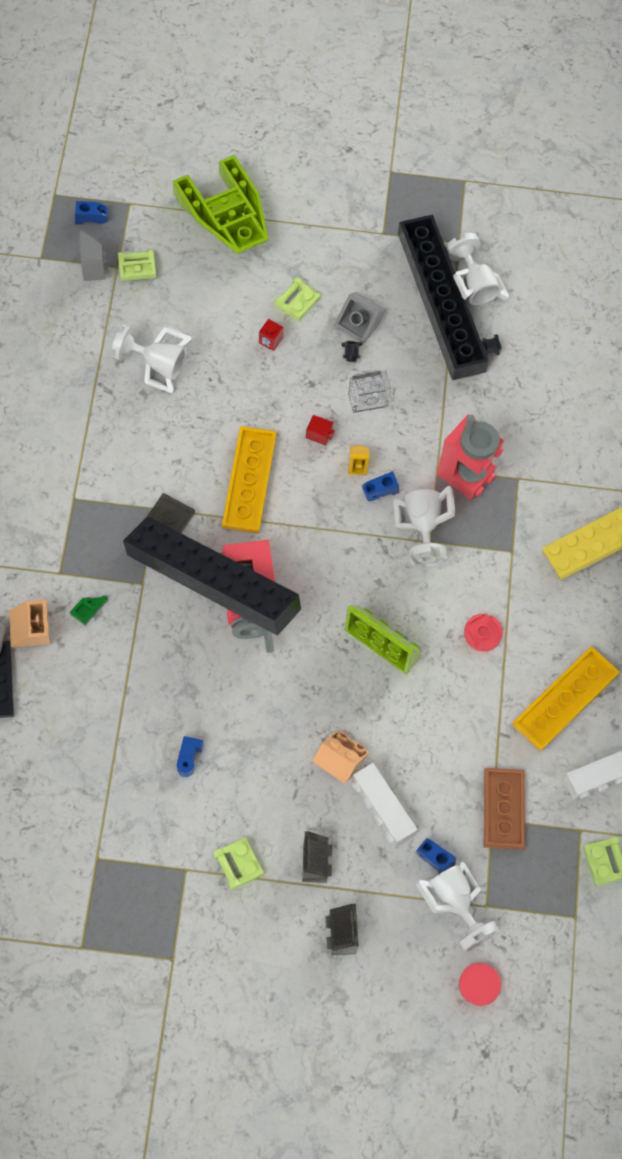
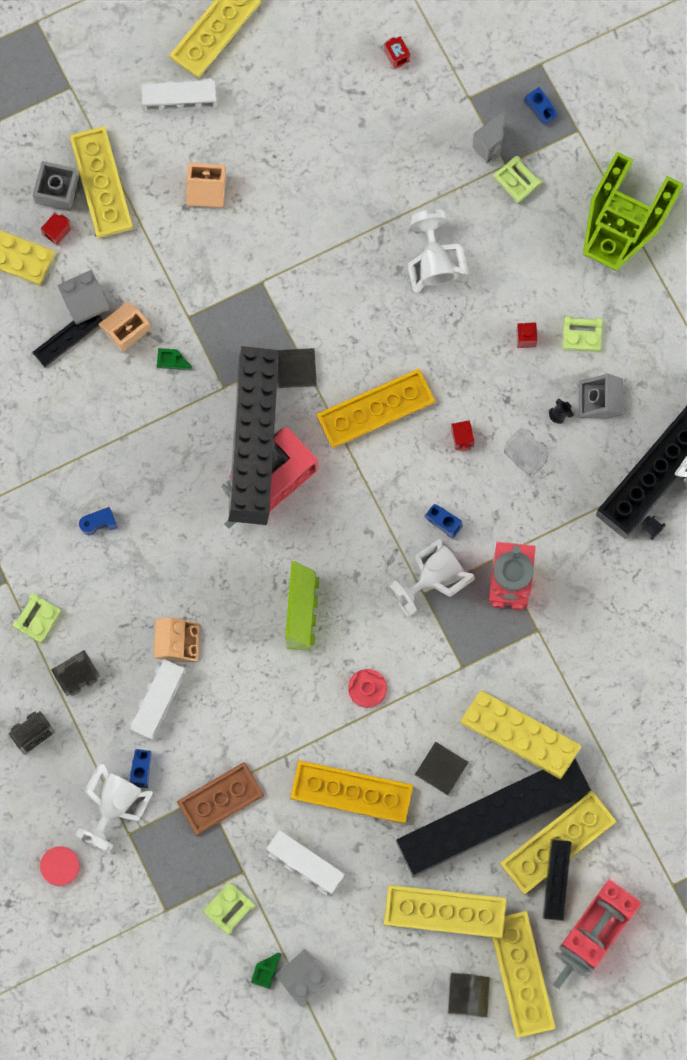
camera: 65 degrees right, 10 degrees up
(358, 460) = (455, 484): yellow slope -> none
(588, 618) = (441, 768): none -> clear smoke tile

